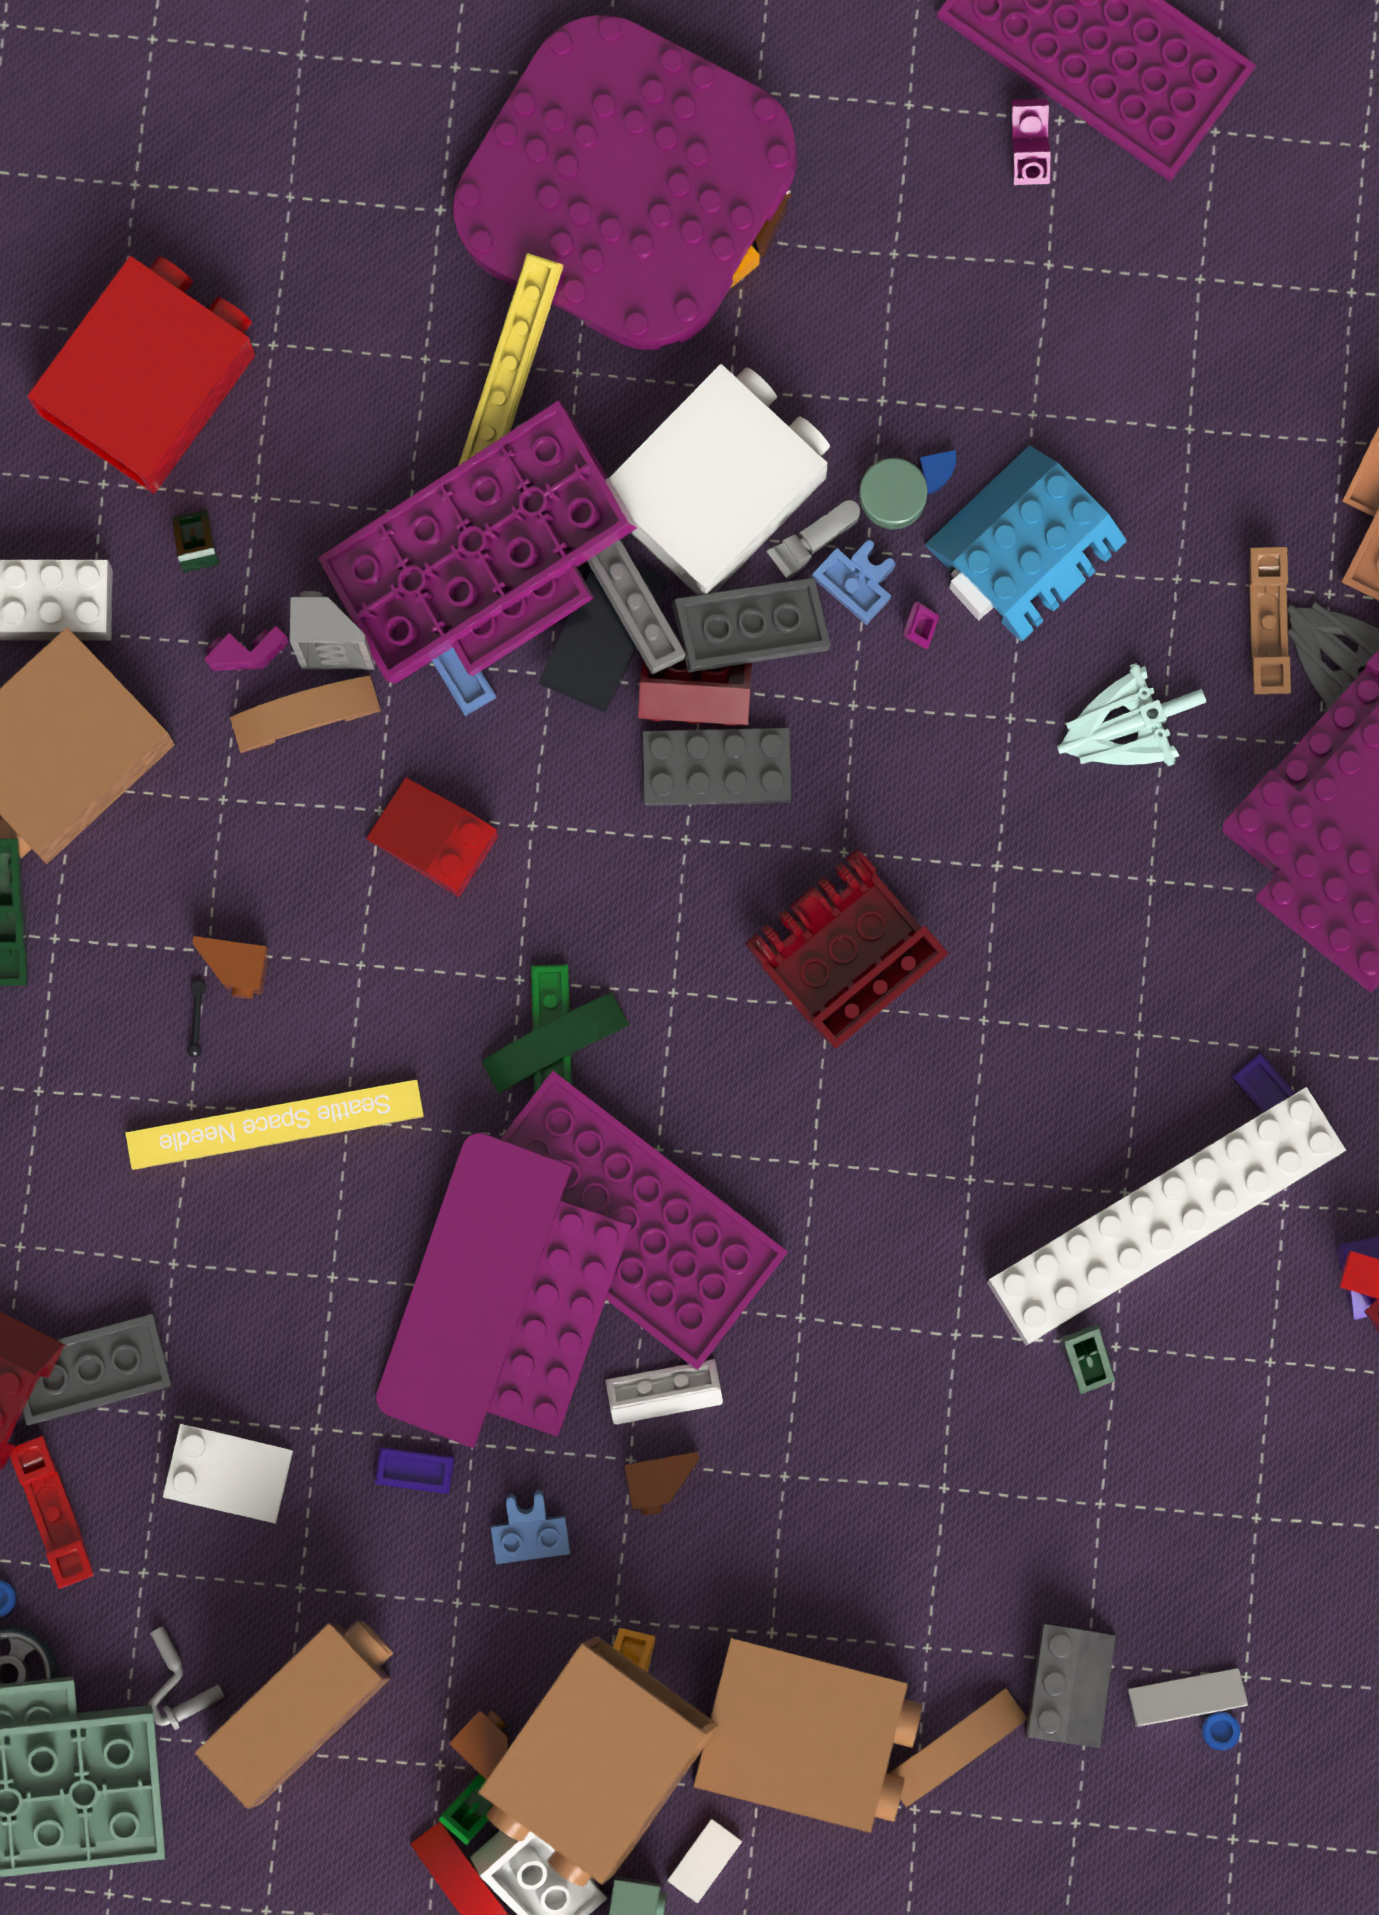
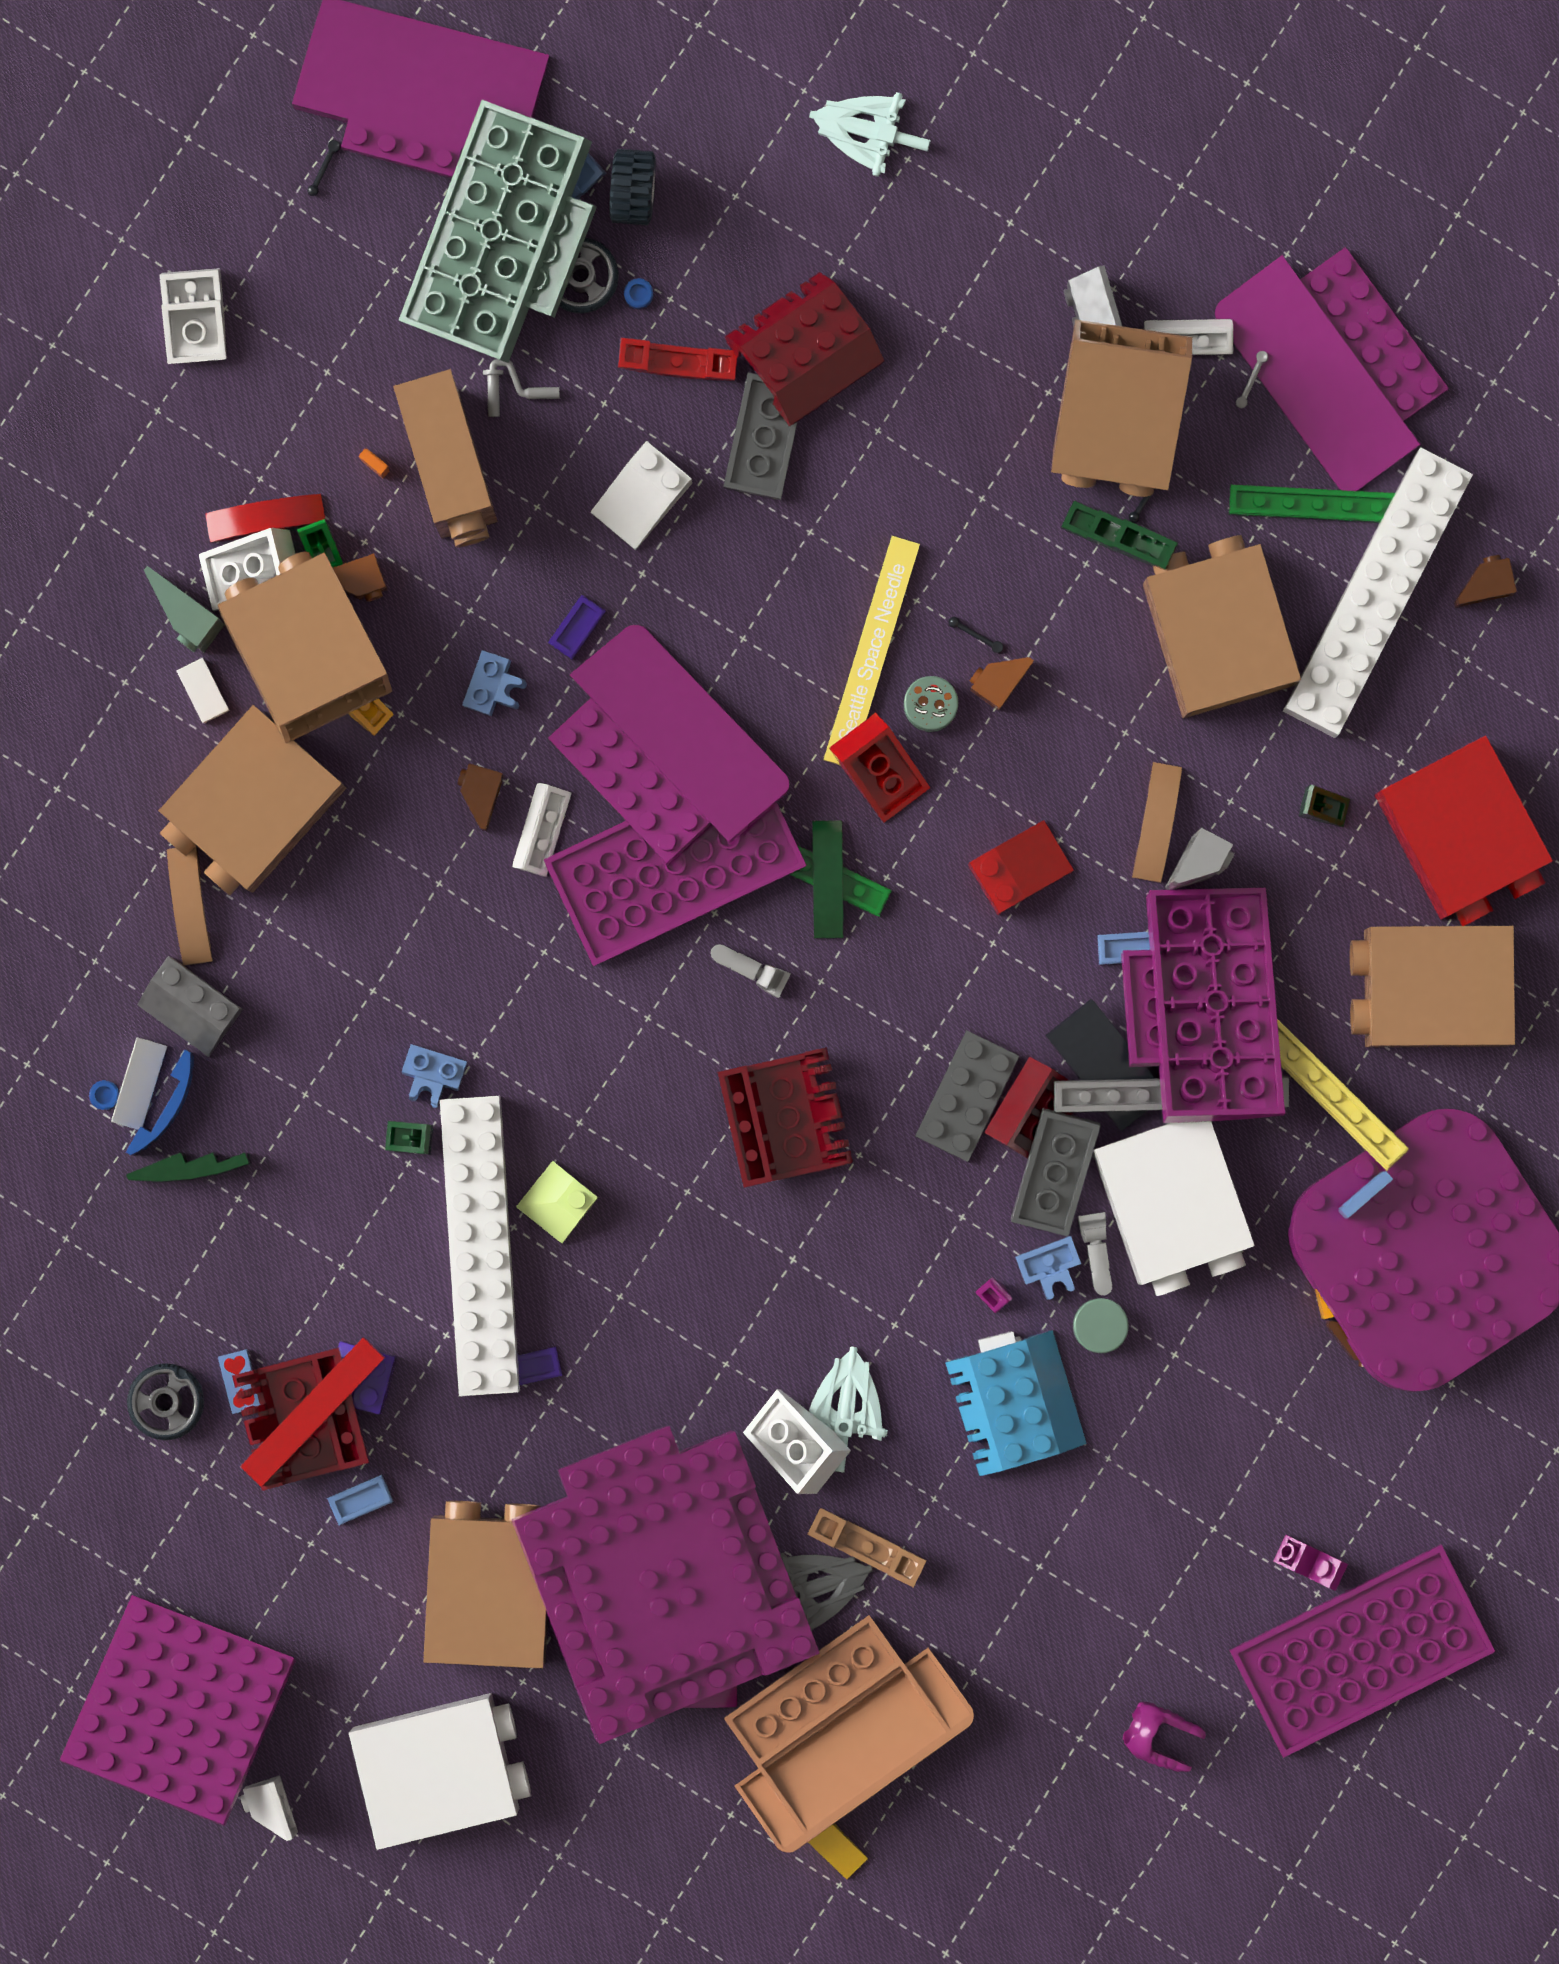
camera: 115 degrees right, 5 degrees up
(230, 654) = (1226, 790): magenta slope -> none
(299, 1027) = (930, 703): none -> sand green head
(333, 317) = (1435, 986): none -> medium nougat brick
(344, 1799) = (374, 463): none -> orange tile
(400, 1047) = (879, 767): none -> red slope
(602, 273) = (1365, 1194): none -> medium blue tile
(699, 1048) = (769, 978): none -> light grey piece
(938, 469) = (1102, 1367): blue tile -> none
(1000, 1371) = (432, 1072): none -> medium blue plate
(1071, 1156) = (557, 1202): none -> yellowish green slope
(1198, 755) = (796, 1443): none -> white slope
(1242, 1655) = (183, 1072): none -> blue slope
(1260, 1601) = (178, 1168): none -> dark green slope
(1290, 218) = (1144, 1726): none -> magenta piece

